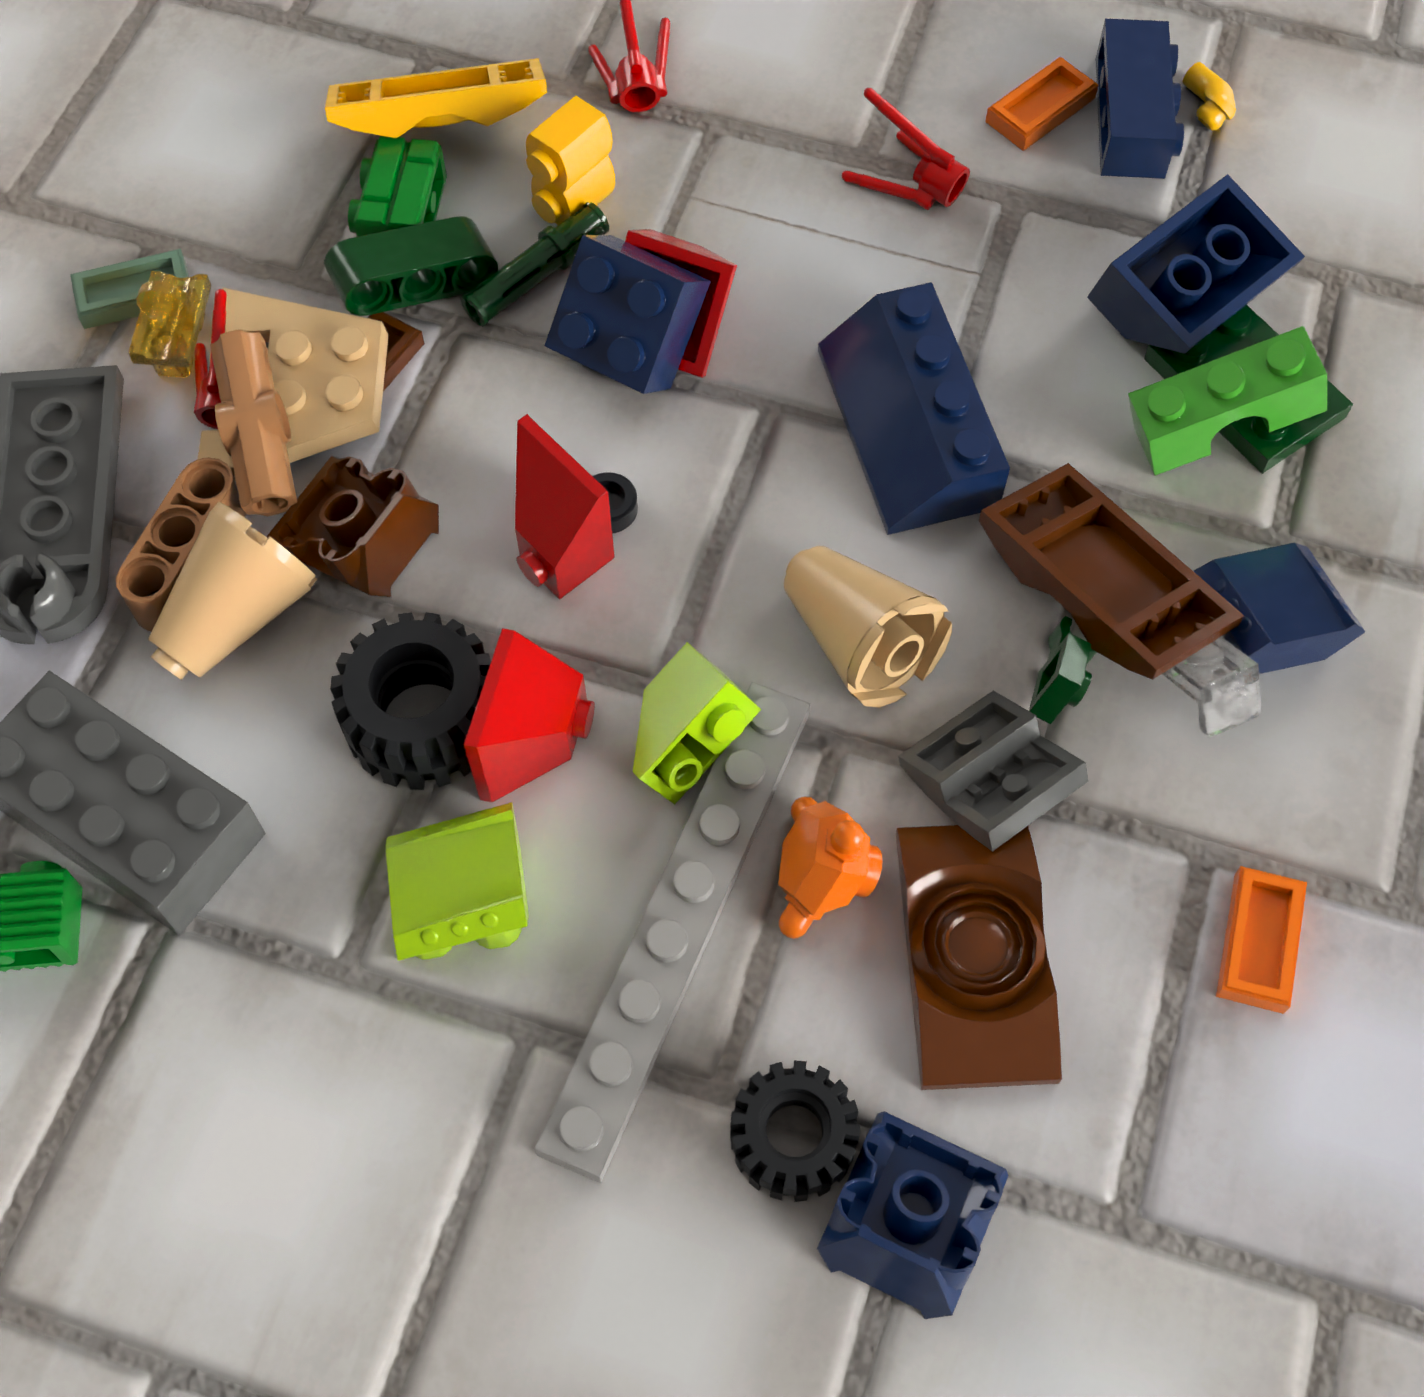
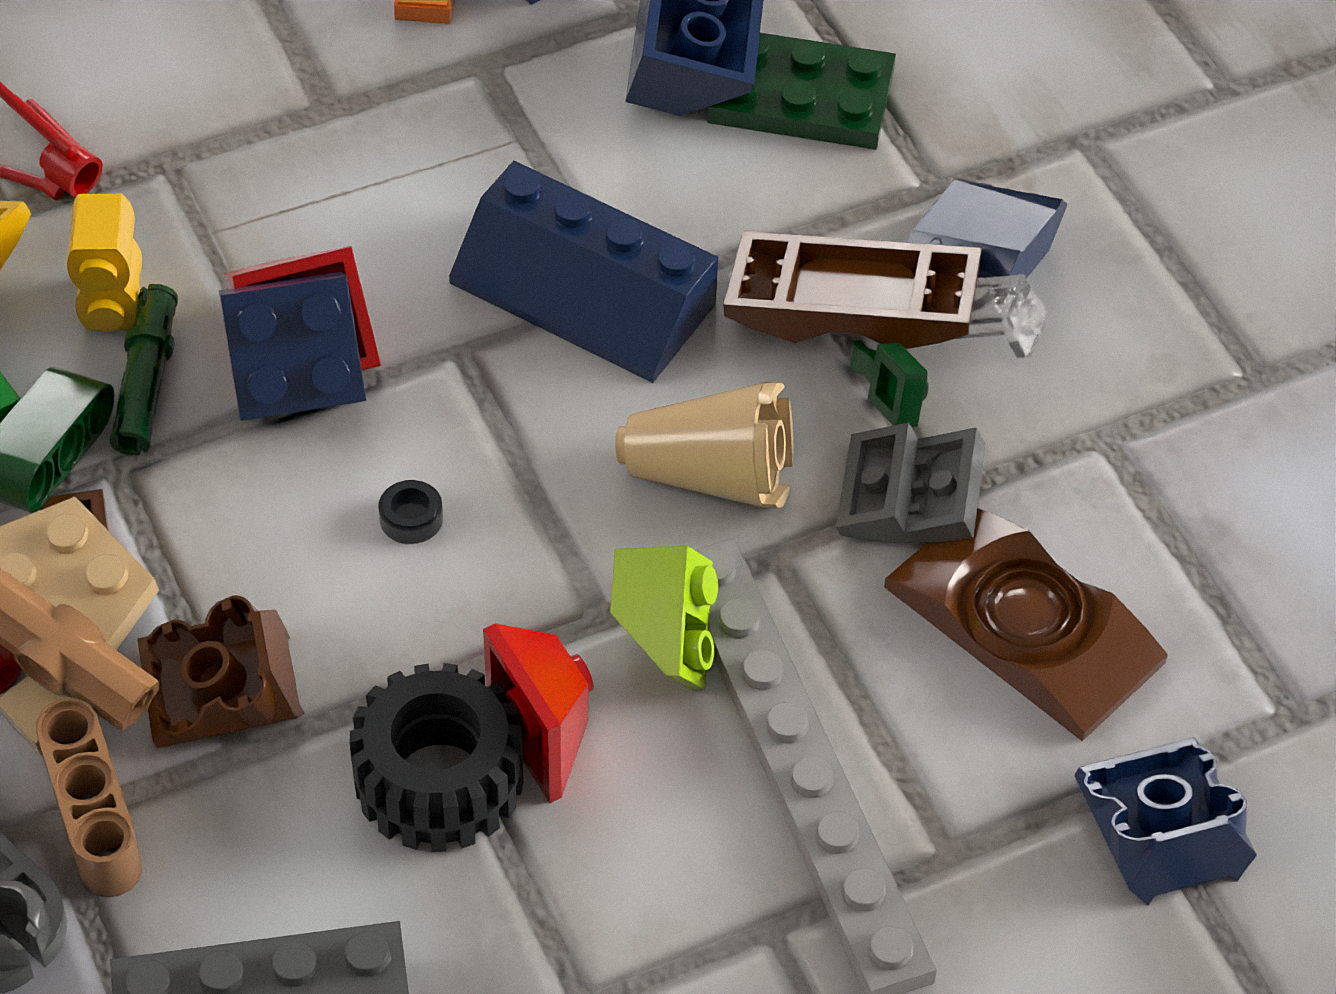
camera: 45 degrees left, 10 degrees down
(225, 593) = (182, 794): tan cone -> none
(457, 884) = (610, 863): lime slope -> none
(558, 514) = (393, 533): red slope -> none
(800, 1088) = (1042, 796): black tyre -> none
(823, 864) = (865, 633): orange rock -> none
(937, 172) = (411, 80): red plant -> none
(1262, 940) = (1198, 464): orange tile -> none
(1269, 380) = (797, 132): bright green arch -> none

